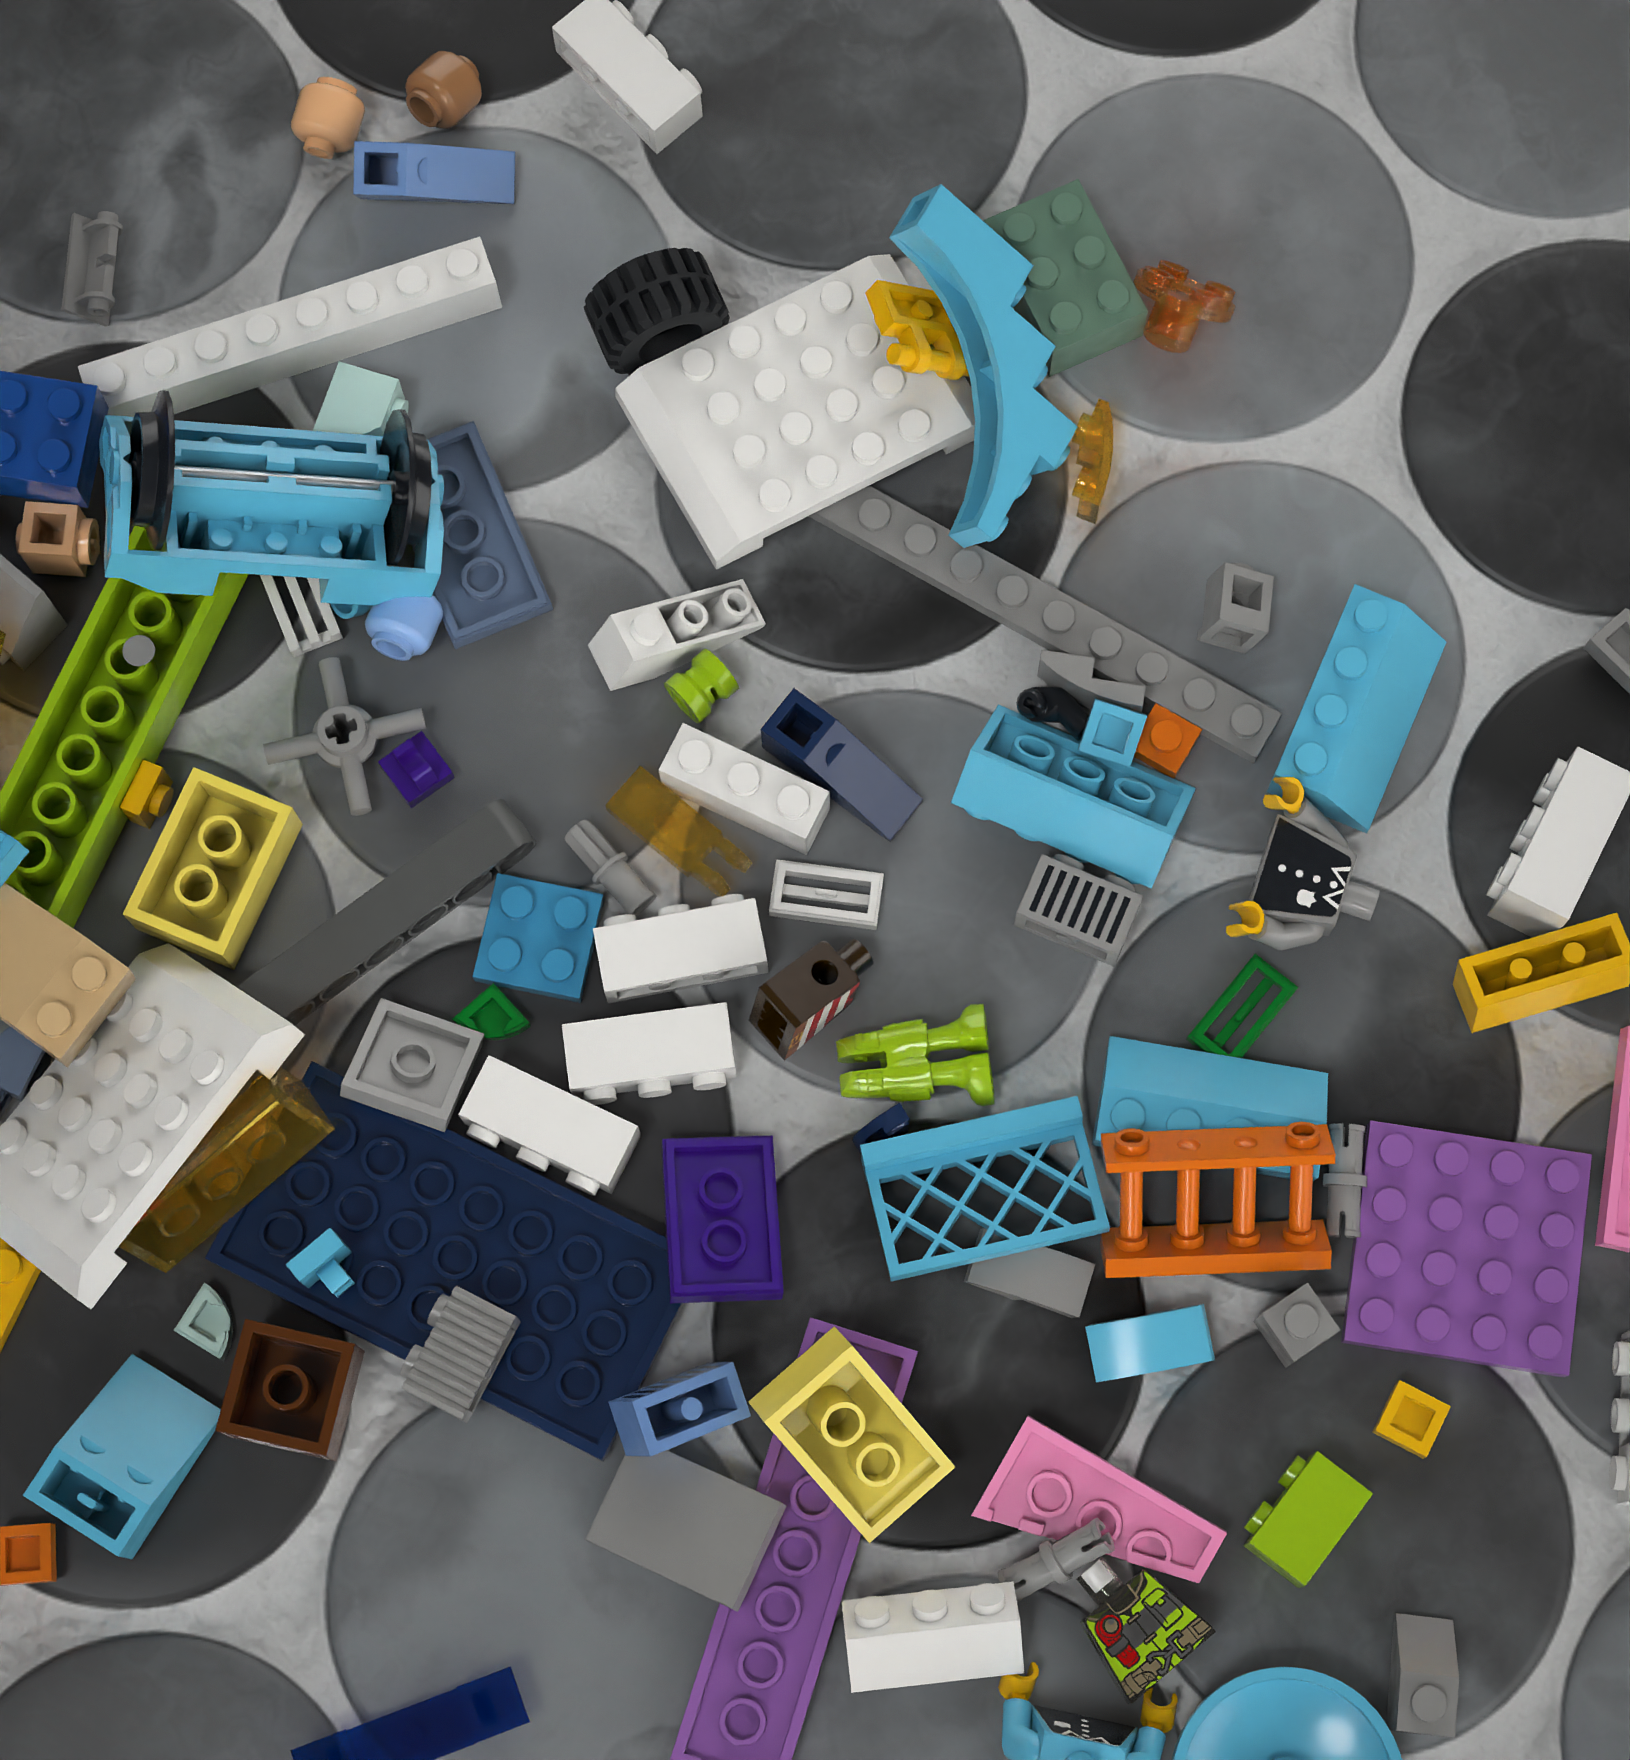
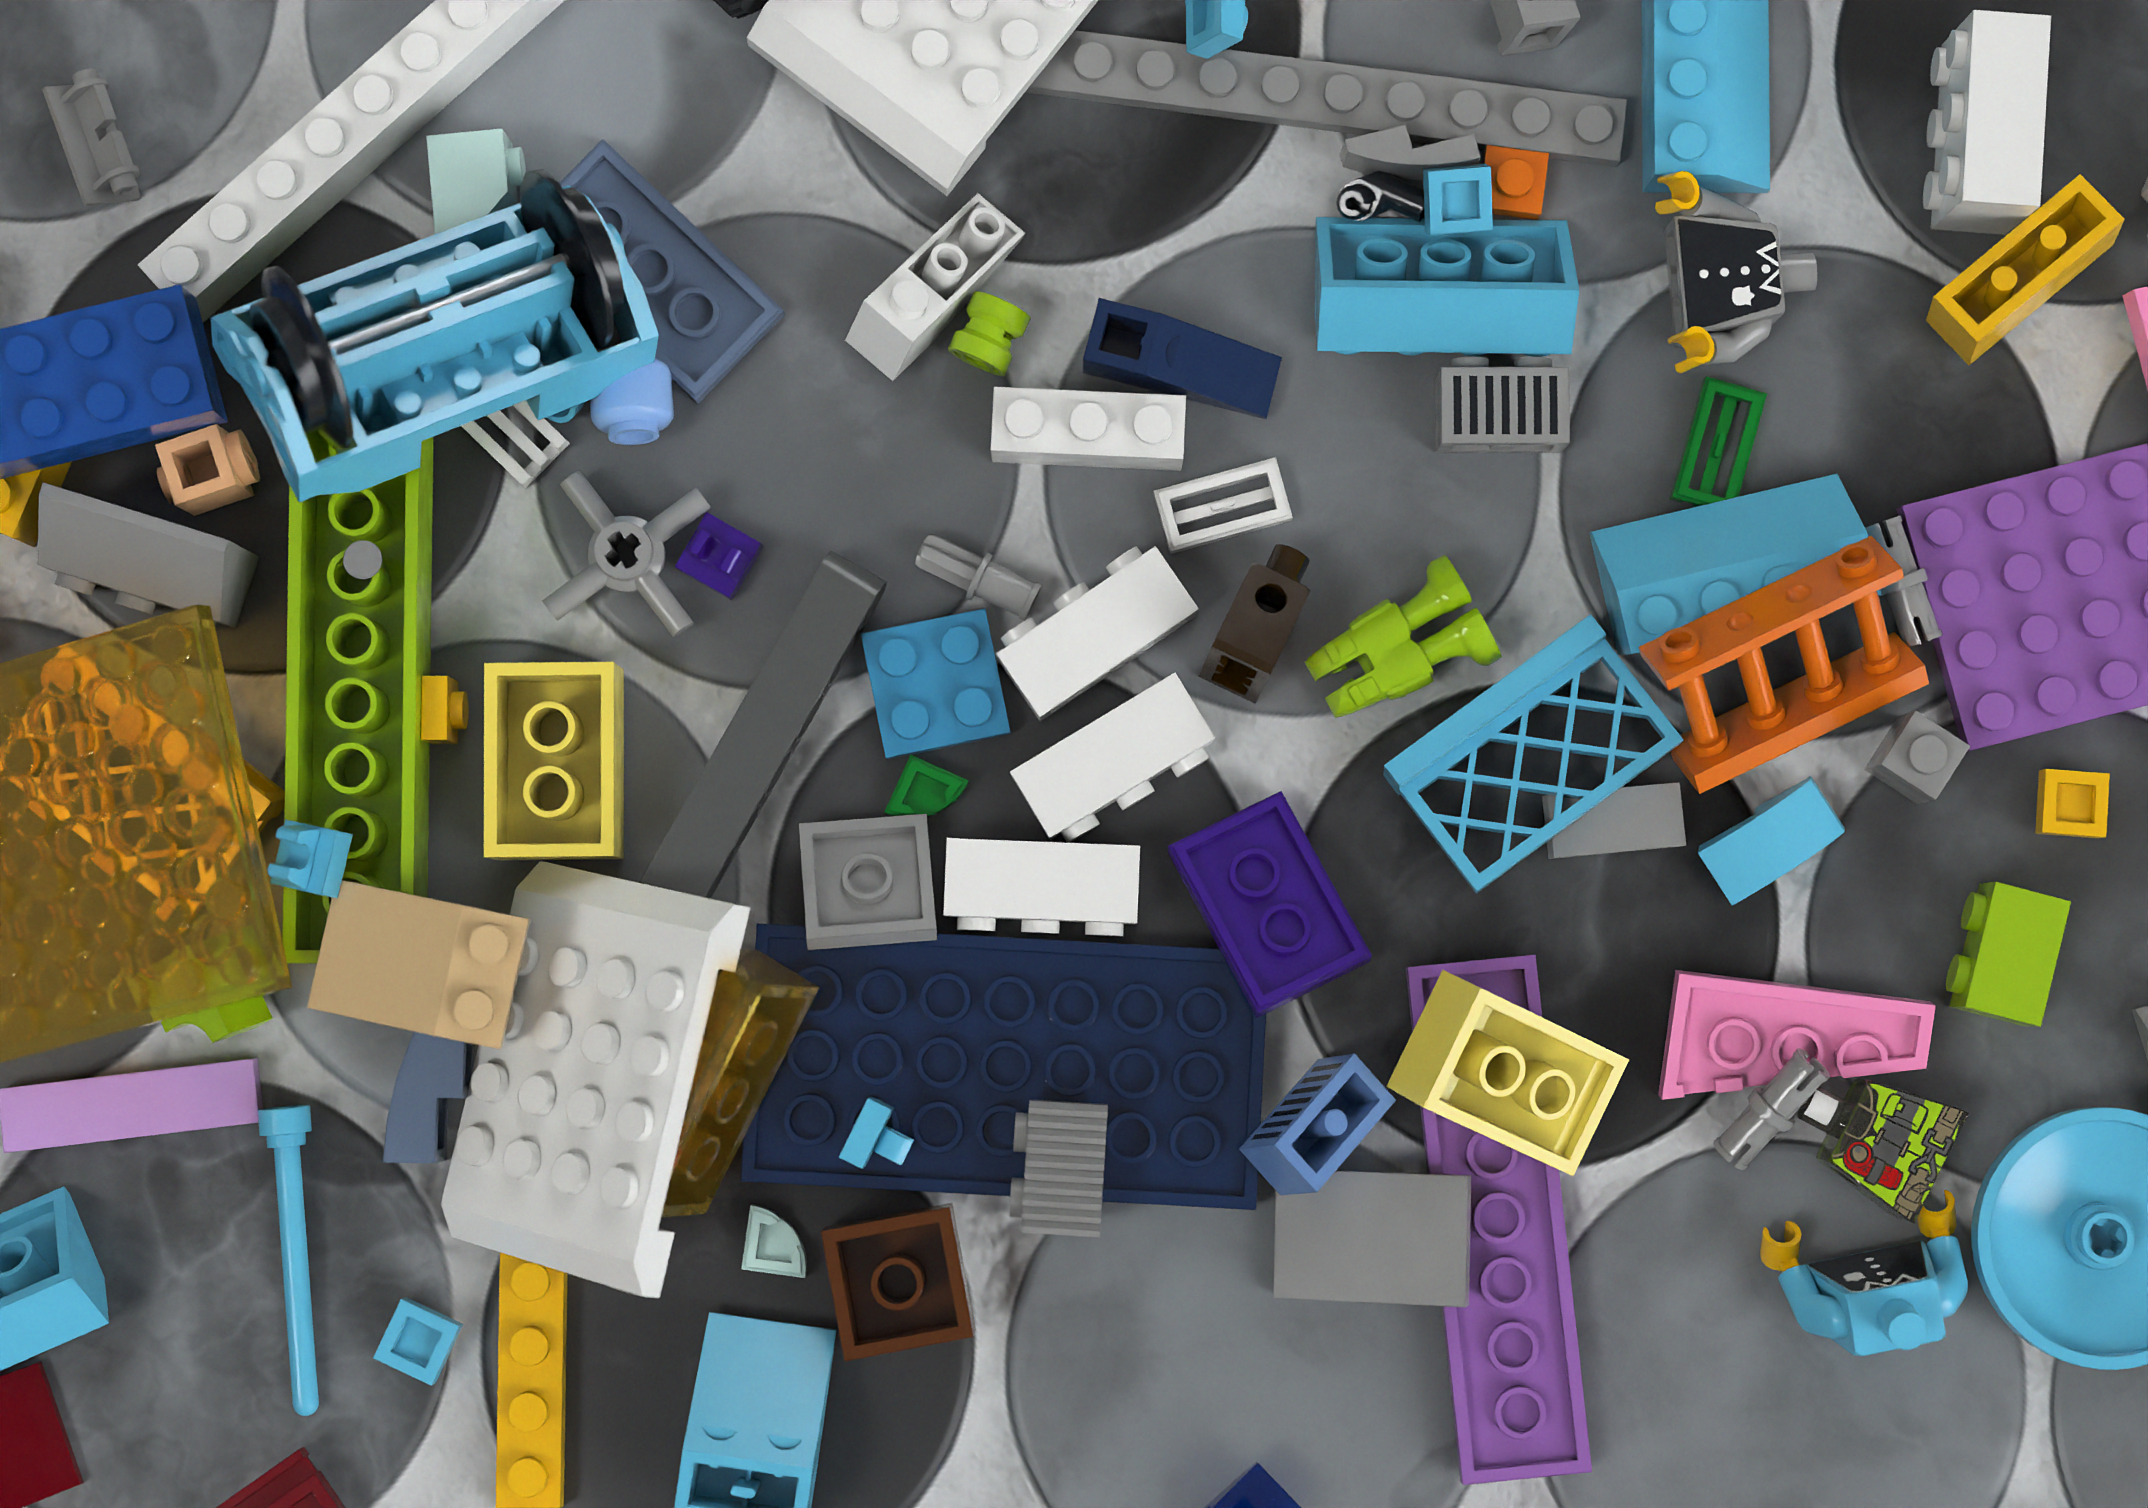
camera: 25 degrees left, 10 degrees up
(674, 829) = (1028, 504): clear yellow hinge -> none
(887, 1125) = (1395, 735): dark blue tile -> none
(933, 1636) = (1680, 1243): white brick -> none

